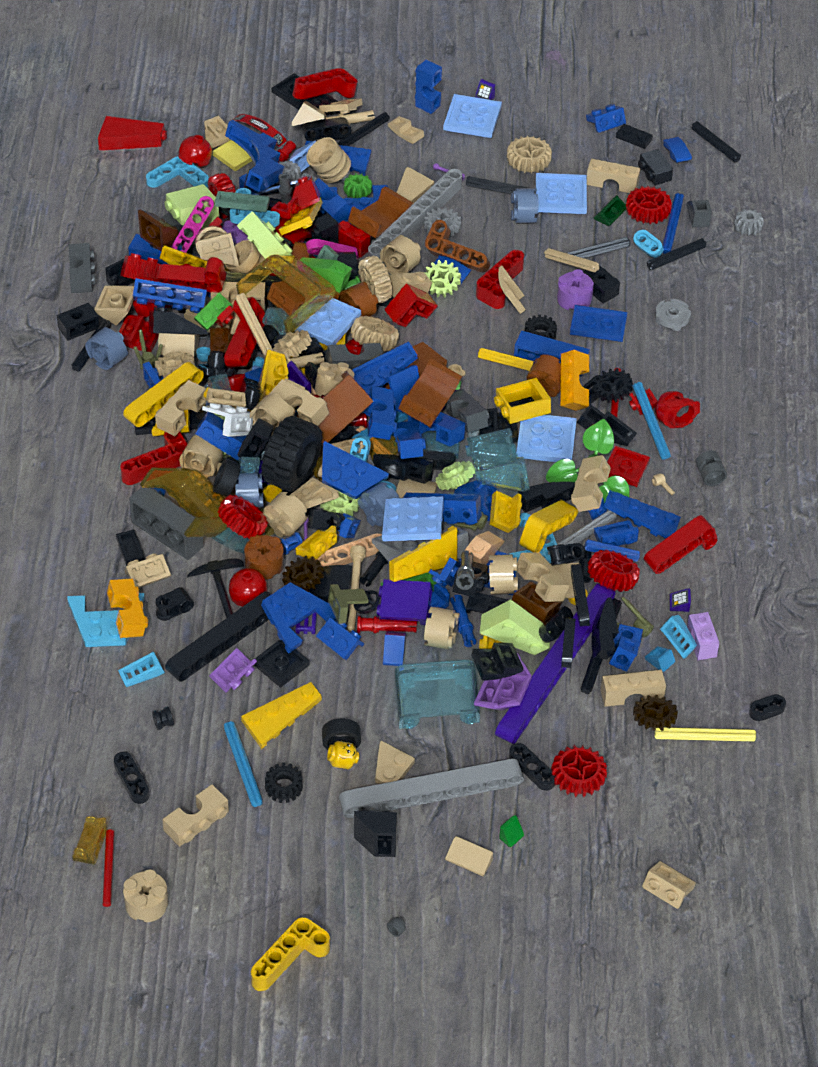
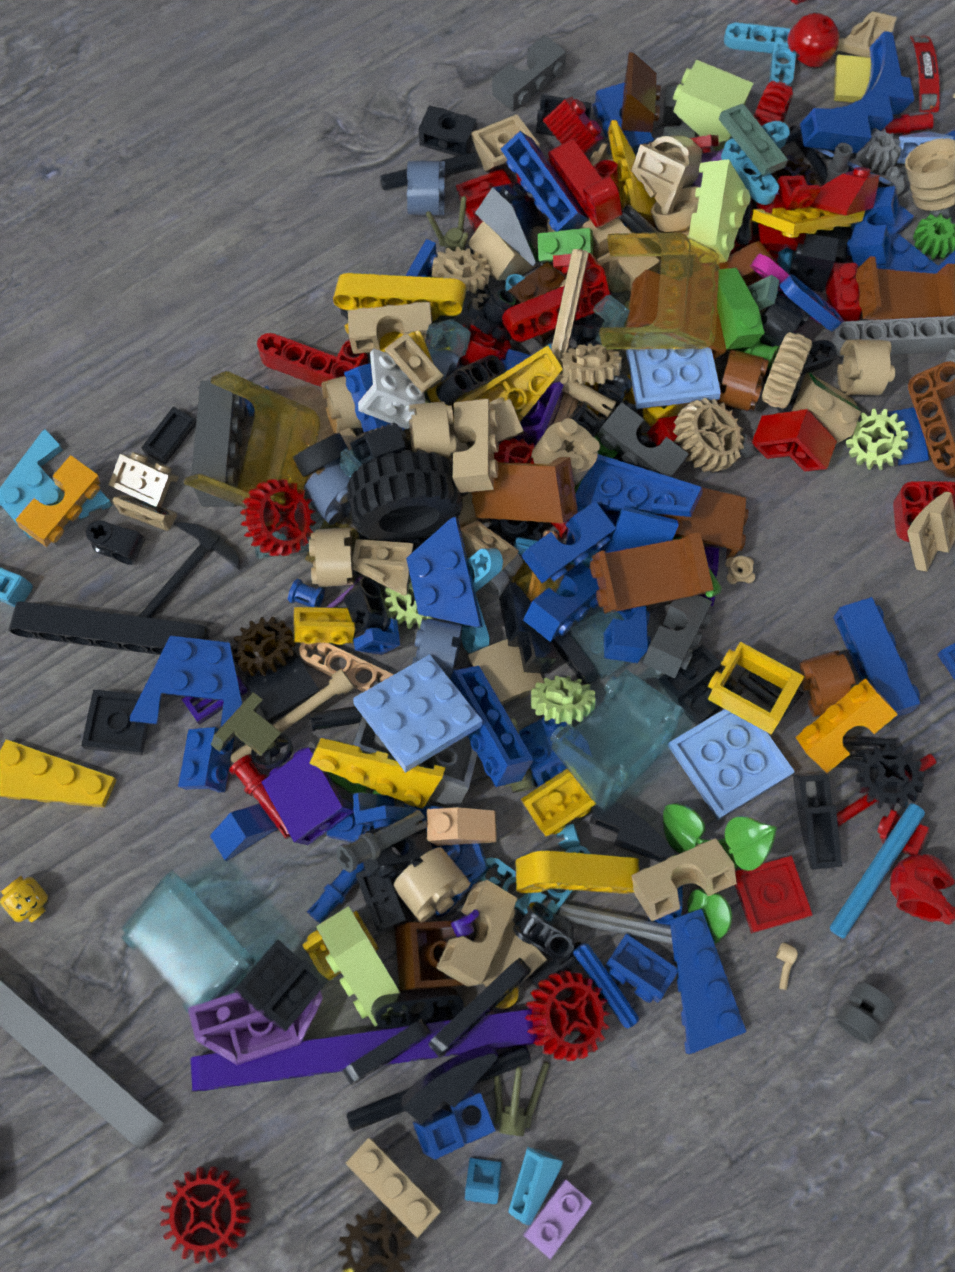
camera: 55 degrees right, 20 degrees up
(168, 583) = (145, 512): none -> tan slope
(190, 224) = (674, 120): dark pink beam -> none
(230, 671) = (63, 679): medium lavender bracket -> none
(246, 586) = (203, 600): red cylinder -> none
(265, 555) = (254, 568): dark orange brick -> none
(341, 727) = (42, 878): black tyre -> none
(350, 246) = (811, 303): none -> blue beam
(392, 764) = (56, 966): tan wing -> none
(440, 628) = (297, 869): tan brick -> none
(505, 359) = (822, 614): yellow axle -> none
(511, 831) = (49, 1196): green slope -> none
(532, 579) = (463, 926): none -> dark purple hand
(534, 775) = (174, 1116): black beam -> none
(541, 323) = (918, 605): black tyre -> none
(680, 600) = (600, 1137): slope -> none
(681, 543) = (690, 1072): red beam -> none

